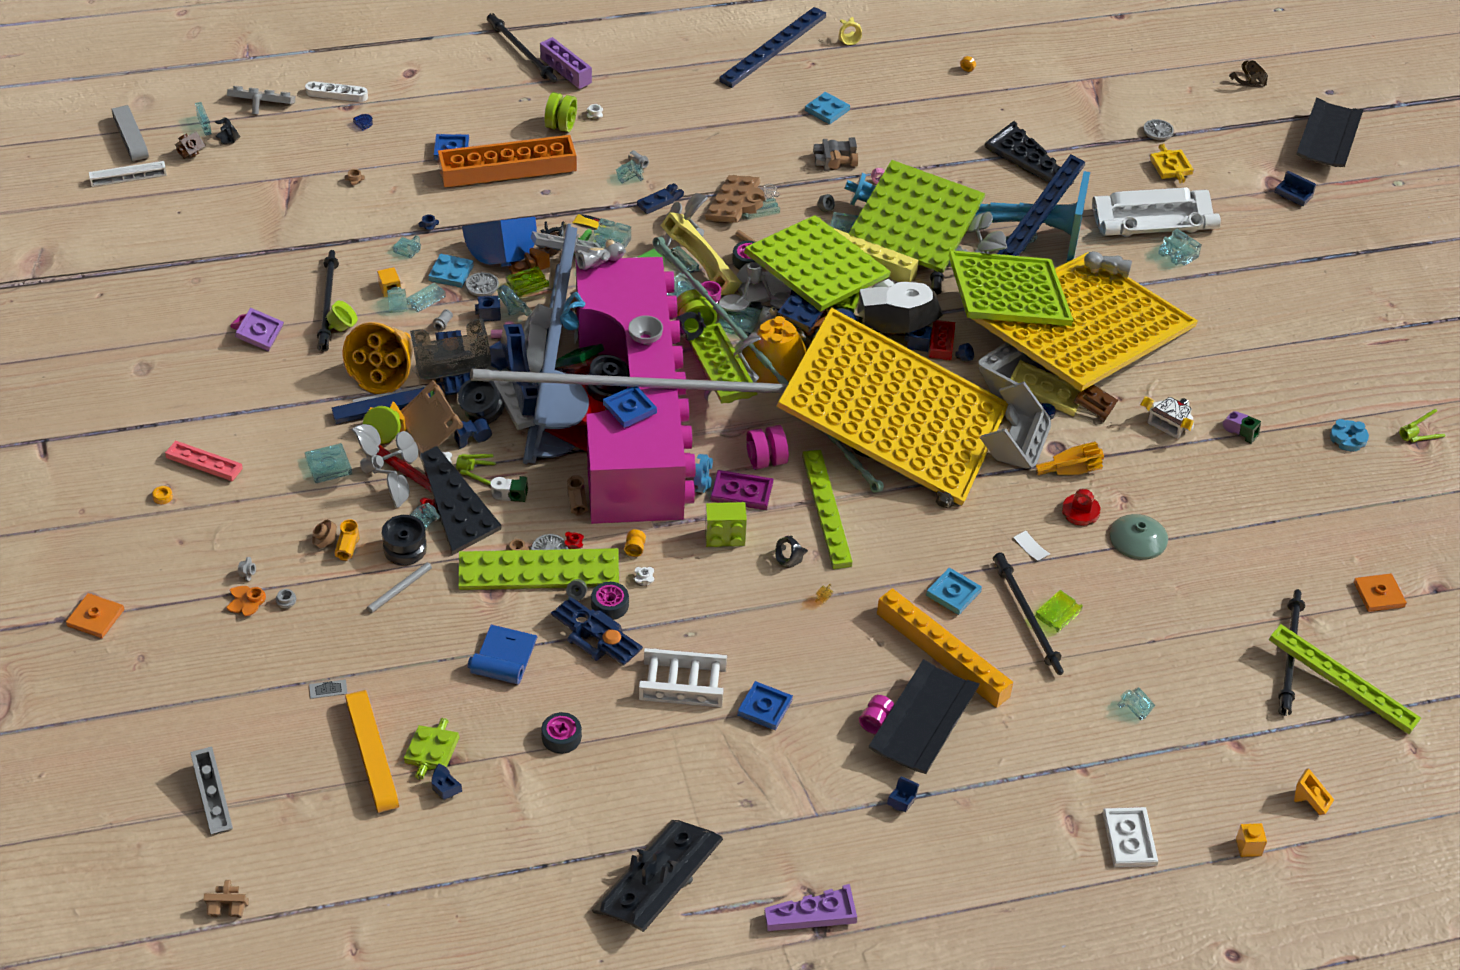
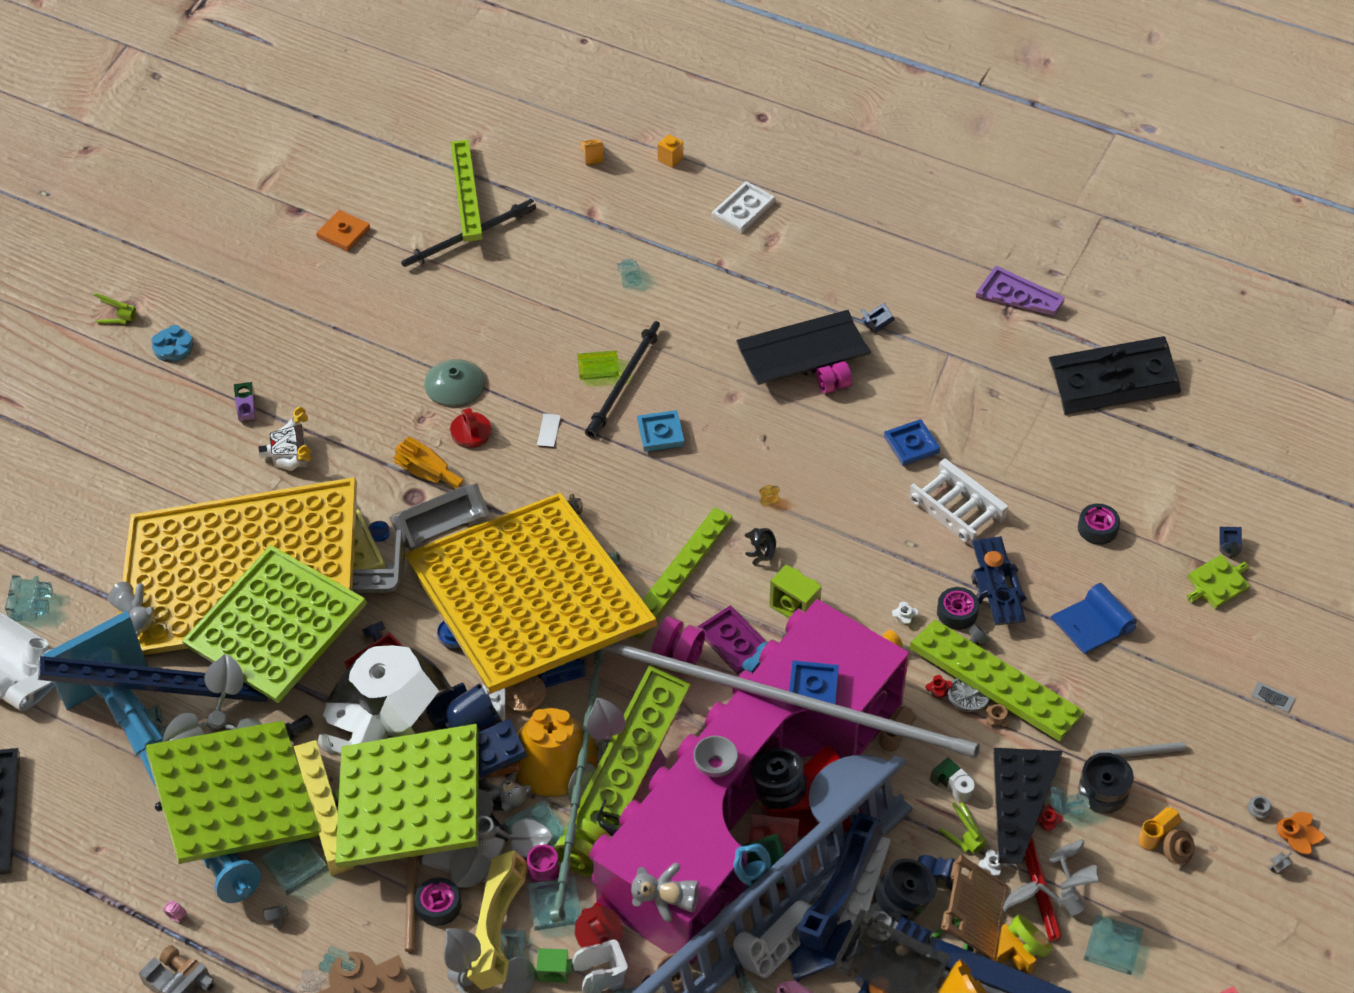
camera: 135 degrees left, 5 degrees up
(372, 751) = (1273, 609): light orange beam -> none
(944, 647) = (724, 393): light orange brick -> none

